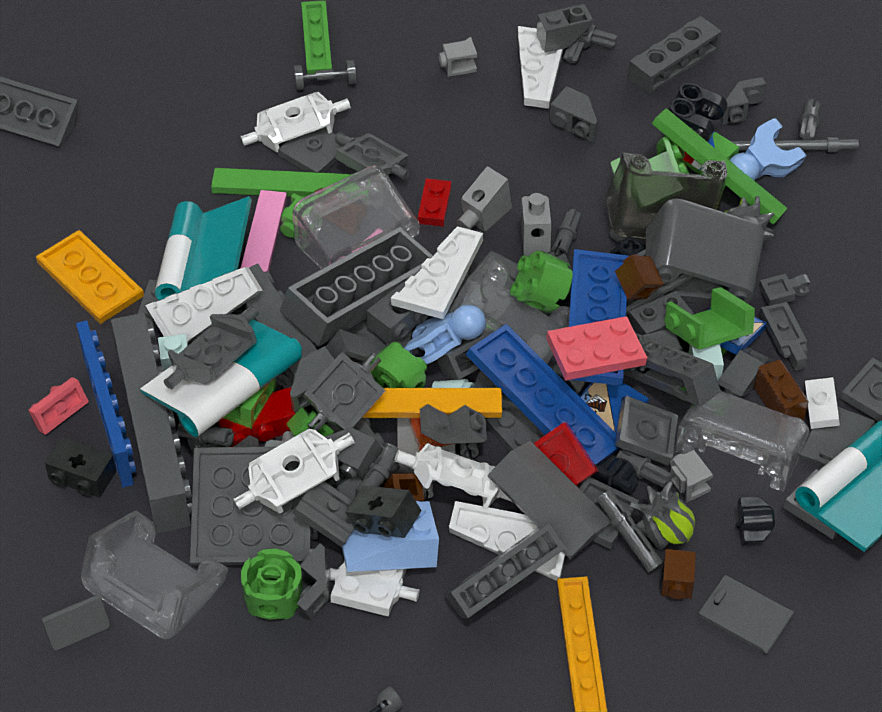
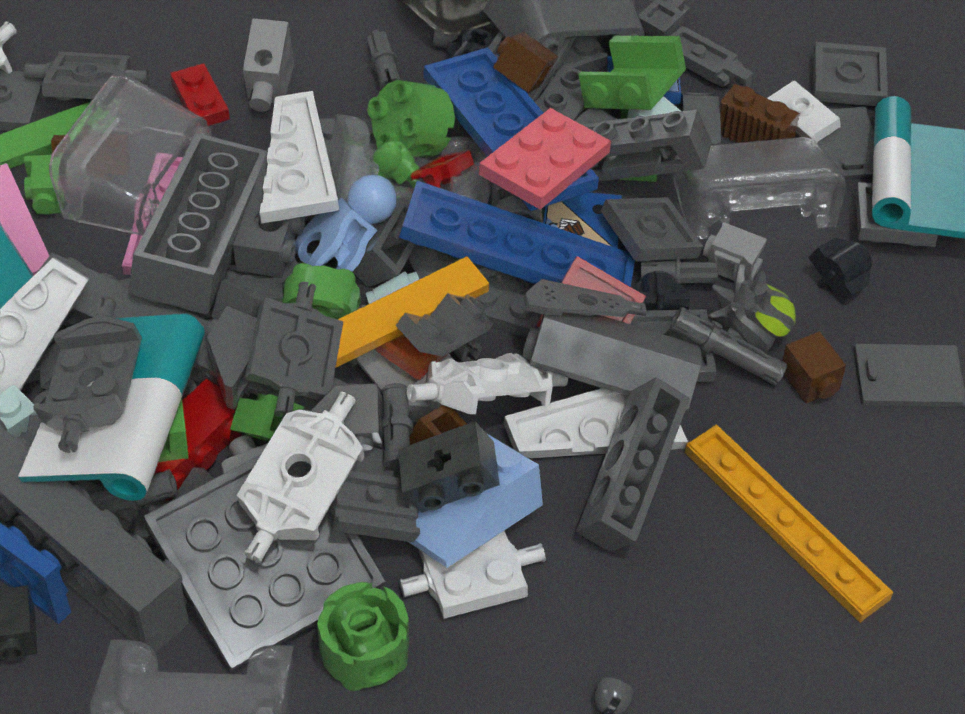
camera: 35 degrees left, 0 degrees up
(317, 568) = (415, 591): dark grey slope -> none
(510, 305) = (395, 162): none -> bright green piece
(533, 215) = (346, 65): light grey torso -> none
(536, 444) = (558, 298): none -> dark grey piece
(540, 324) = (444, 168): none -> red plate

